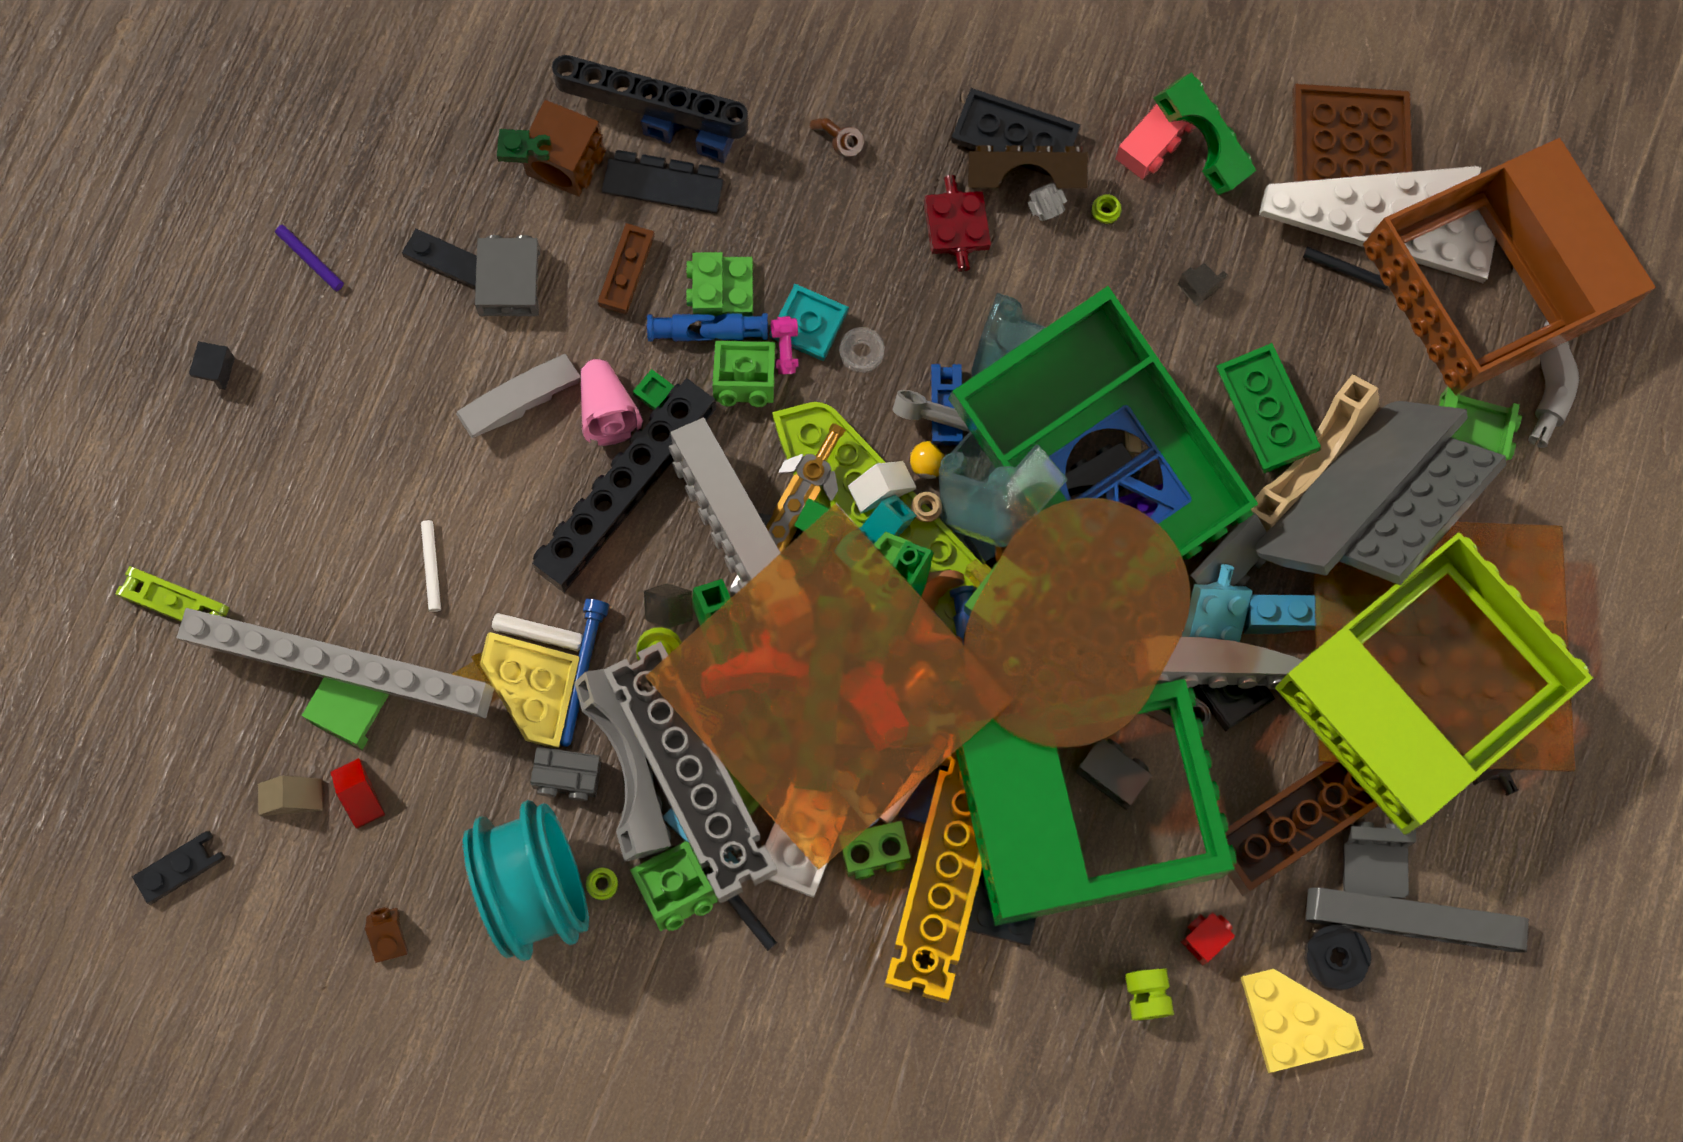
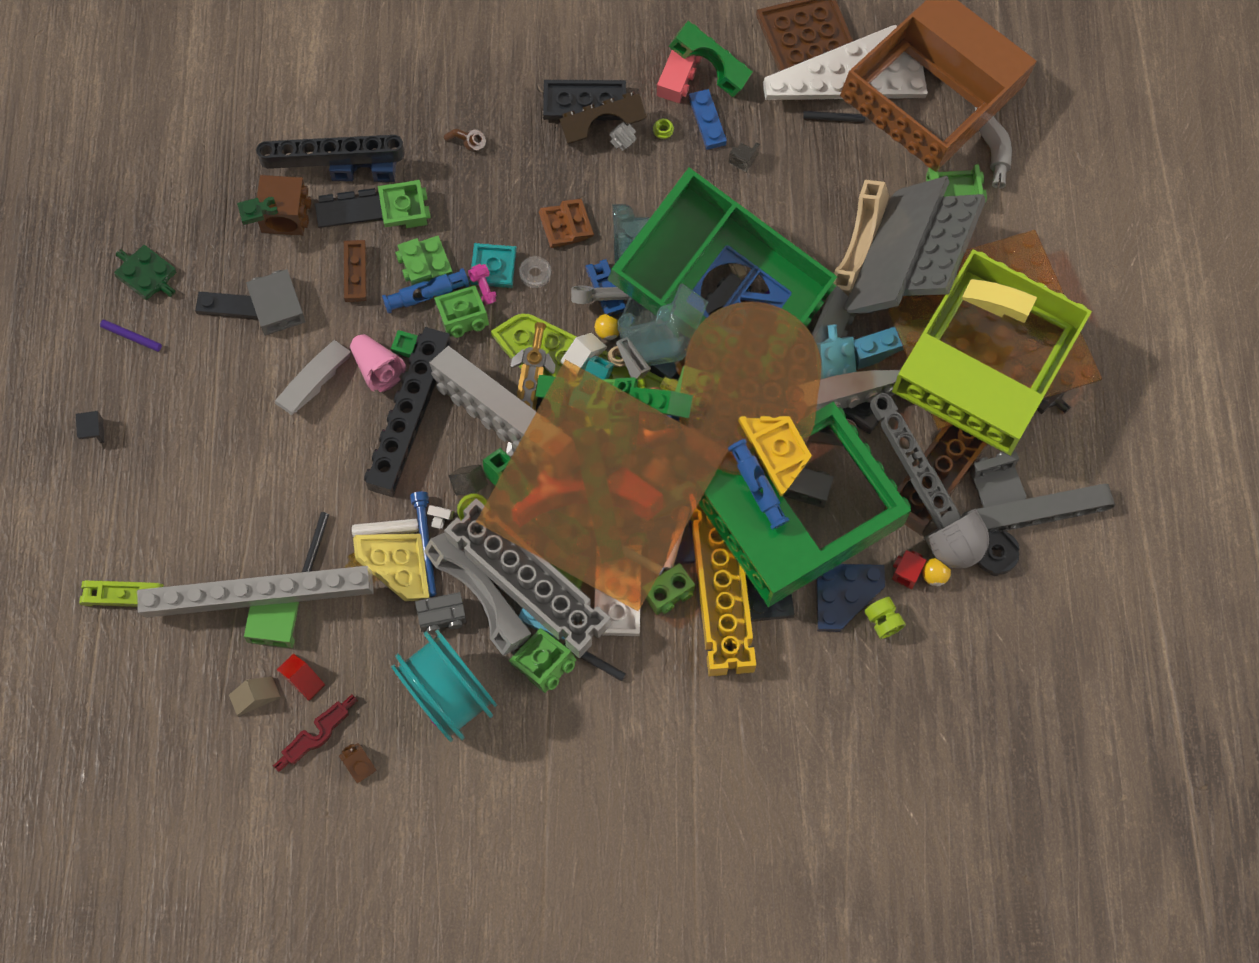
camera: 20 degrees left, 5 degrees down
(176, 869) = (193, 771): black hinge -> none
(331, 880) = (305, 741): none -> dark red piece
(357, 179) = (145, 272): none -> dark green plate
(430, 566) = (294, 510): white bar -> none
(440, 622) = (315, 543): none -> black bar
(595, 876) = (489, 671): lime plate -> none
(614, 640) = (440, 515): none -> white tile
(722, 199) = (404, 204): none -> bright green plate
(927, 296) = (566, 223): none -> dark orange slope
(943, 520) = (634, 361): none -> light grey piece
(948, 600) = (665, 401): none -> green arch
(957, 222) = (567, 169): dark red plate -> none
(1039, 787) = (756, 480): none -> blue piece
(1081, 721) = (777, 447): none -> yellow wing
(1111, 939) = (845, 593): none -> dark blue plate
(1171, 215) = (707, 119): none -> blue plate
(1243, 956) = (935, 572): none -> yellow piece
(1268, 408) = (818, 220): green plate -> none
(1288, 922) = (959, 538): none -> piece
(1296, 1023) = (986, 603): light yellow plate -> none
(1468, 617) = (999, 299): none -> light yellow slope

